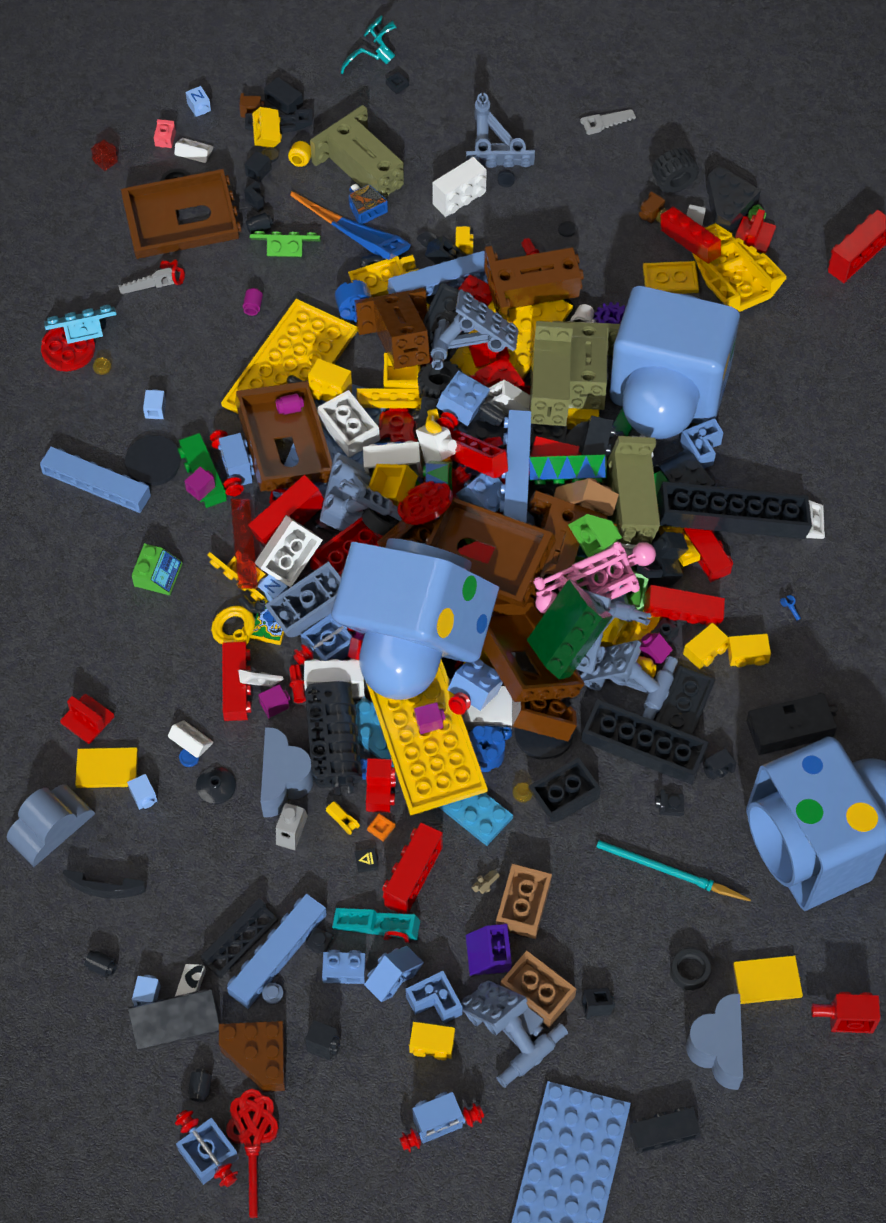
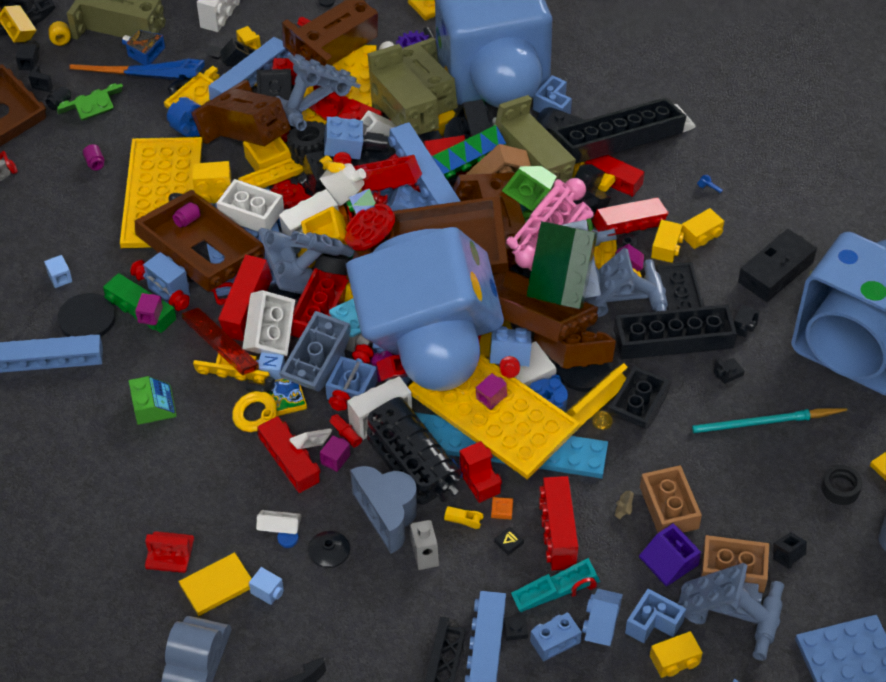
camera: 30 degrees left, 10 degrees down
(530, 768) = (598, 396): none -> yellow fence

